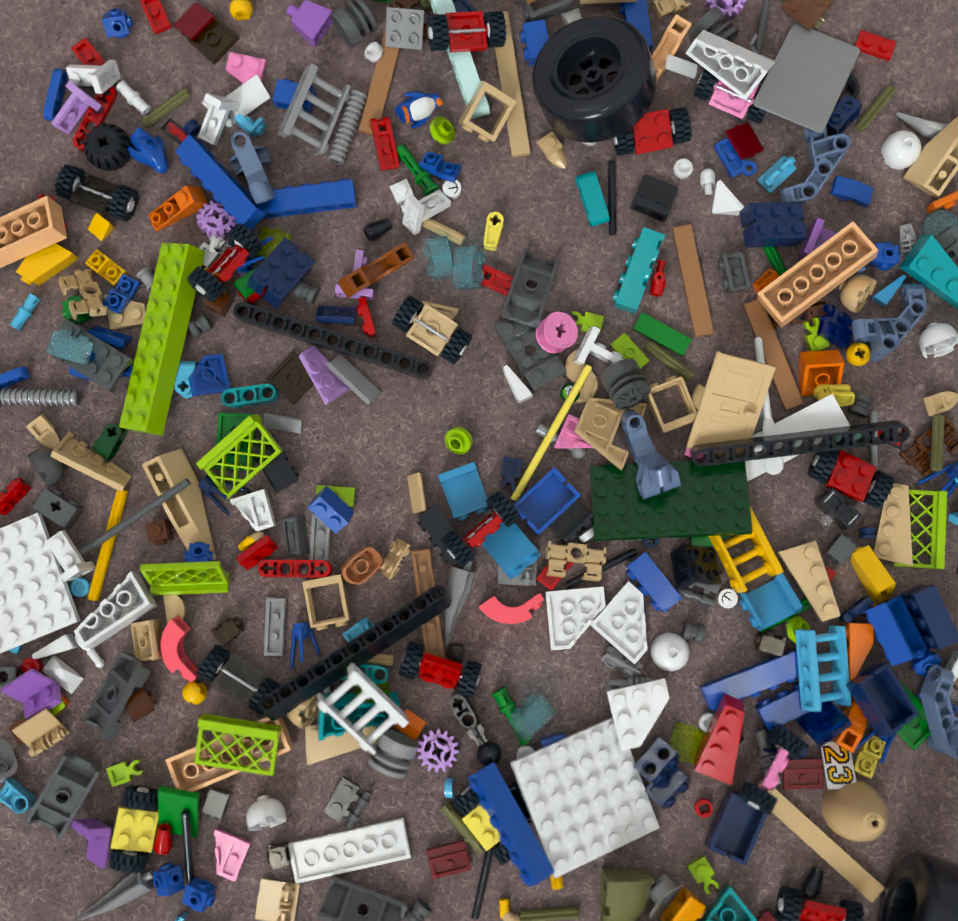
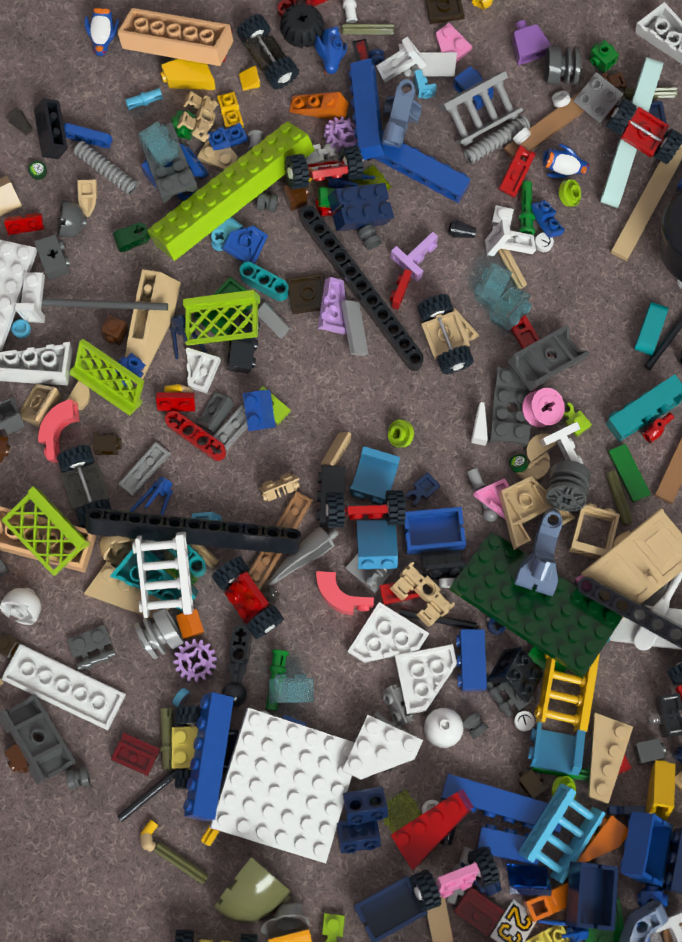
camera: 30 degrees right, 10 degrees down
(84, 460) = (100, 235): tan wing -> none
(107, 546) = (65, 313): yellow axle -> none
(194, 692) = (43, 471): yellow piece -> none
(321, 625) = (207, 461): tan window -> none
(336, 314) = (379, 270): dark blue plate -> none
(361, 566) = (249, 471): nougat piece -> none
(366, 111) = (522, 136): none -> white tile
(376, 270) = (447, 259): dark orange arch -> none
(482, 88) = (634, 197): tan window -> none
(493, 232) = (551, 297): light yellow piece -> none
(551, 432) = (480, 480): light yellow piece -> none
(553, 150) = (648, 270): tan plate -> none
(629, 350) = (592, 461): lime plate -> none
(704, 814) = (372, 882): red bush -> none

